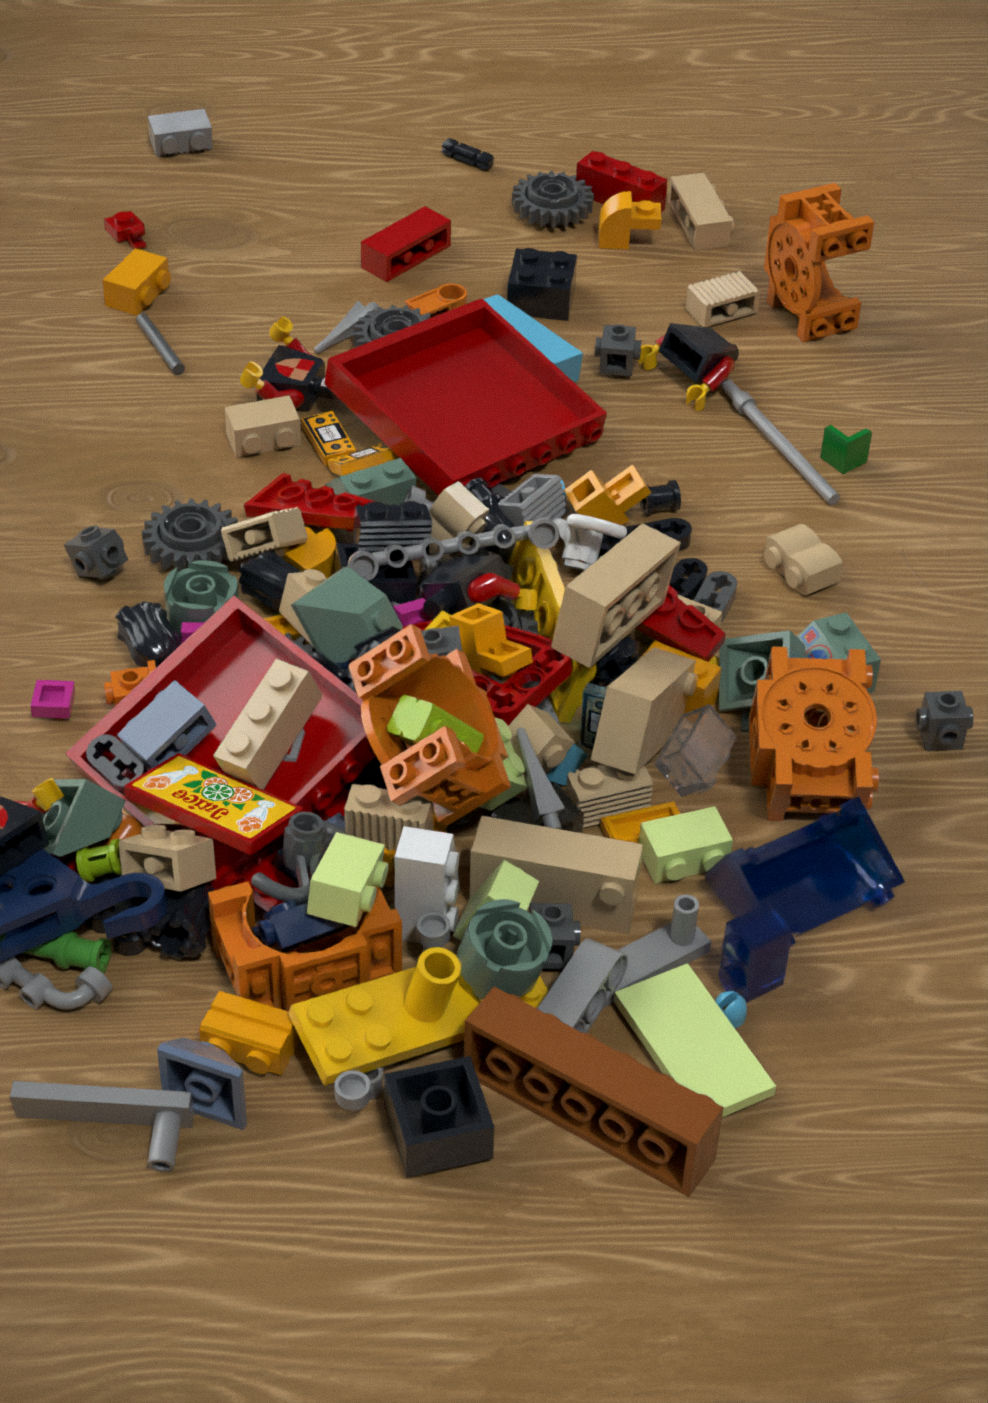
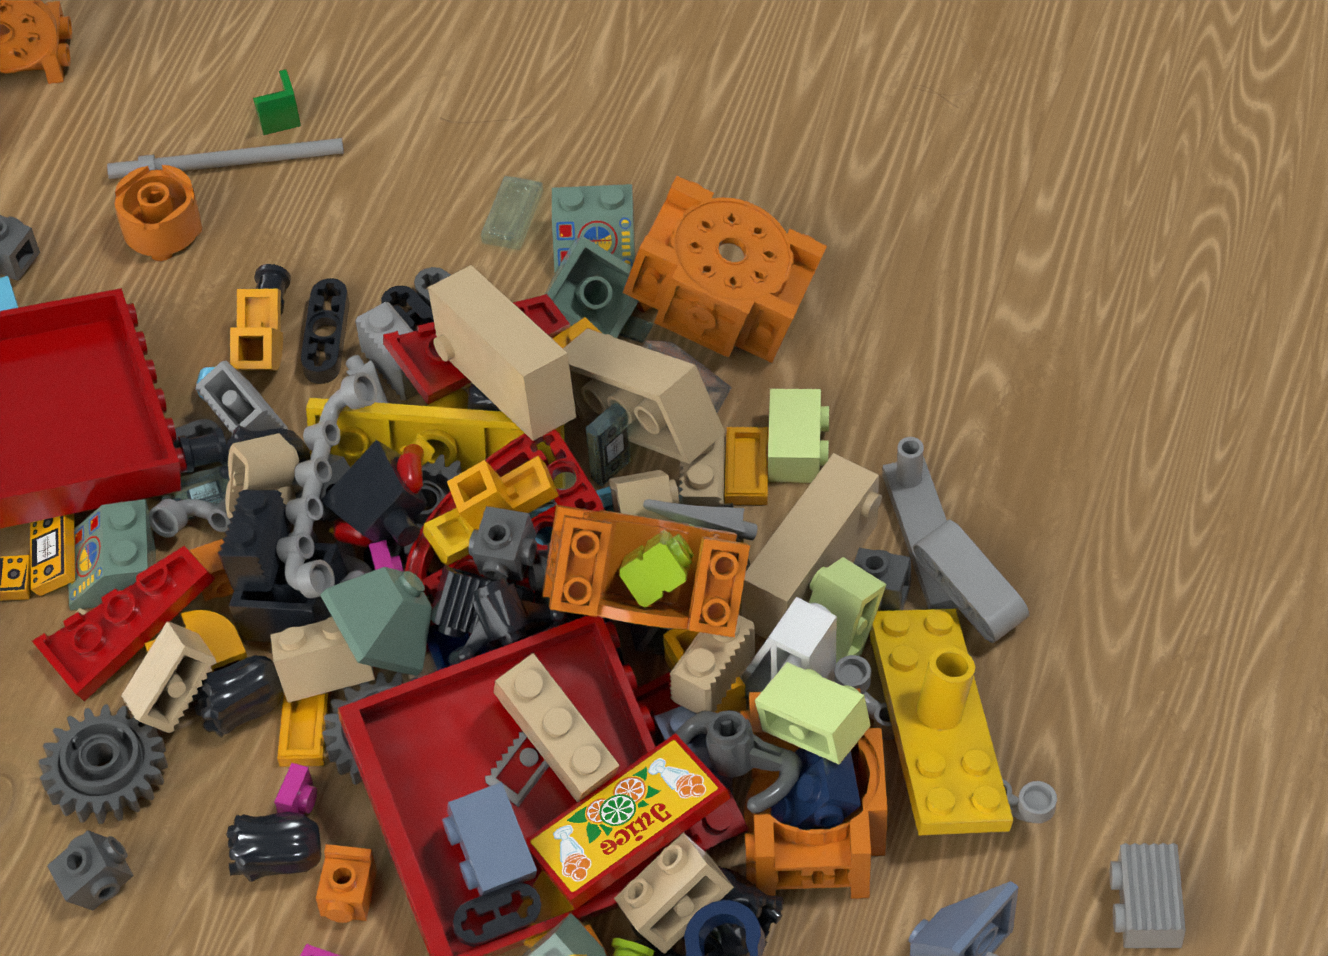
camera: 65 degrees left, 10 degrees up
(197, 592) = (236, 772): sand green brick -> none
(250, 1033) = (908, 886): light orange brick -> none
(301, 1214) = (1149, 896): none -> light grey brick
(438, 1116) = (1079, 741): black brick -> none
(504, 948) = (918, 613): sand green brick -> none
(584, 538) = (316, 374): white piece -> none
(593, 1090) = (1092, 604): dark orange brick -> none
(694, 1039) = (1046, 510): yellowish green tile -> none
(695, 413) = (157, 211): none -> orange brick
(697, 353) = (58, 174): black torso -> none
(736, 1008) = (999, 474): medium azure hinge -> none
(755, 953) = (972, 420): clear blue brick -> none
(803, 559) = (431, 201): tan brick -> none
(806, 610) = (512, 212): none -> clear light blue tile
(811, 871) = (870, 351): clear blue windscreen -> none
(944, 720) = (718, 167): dark grey brick -> none

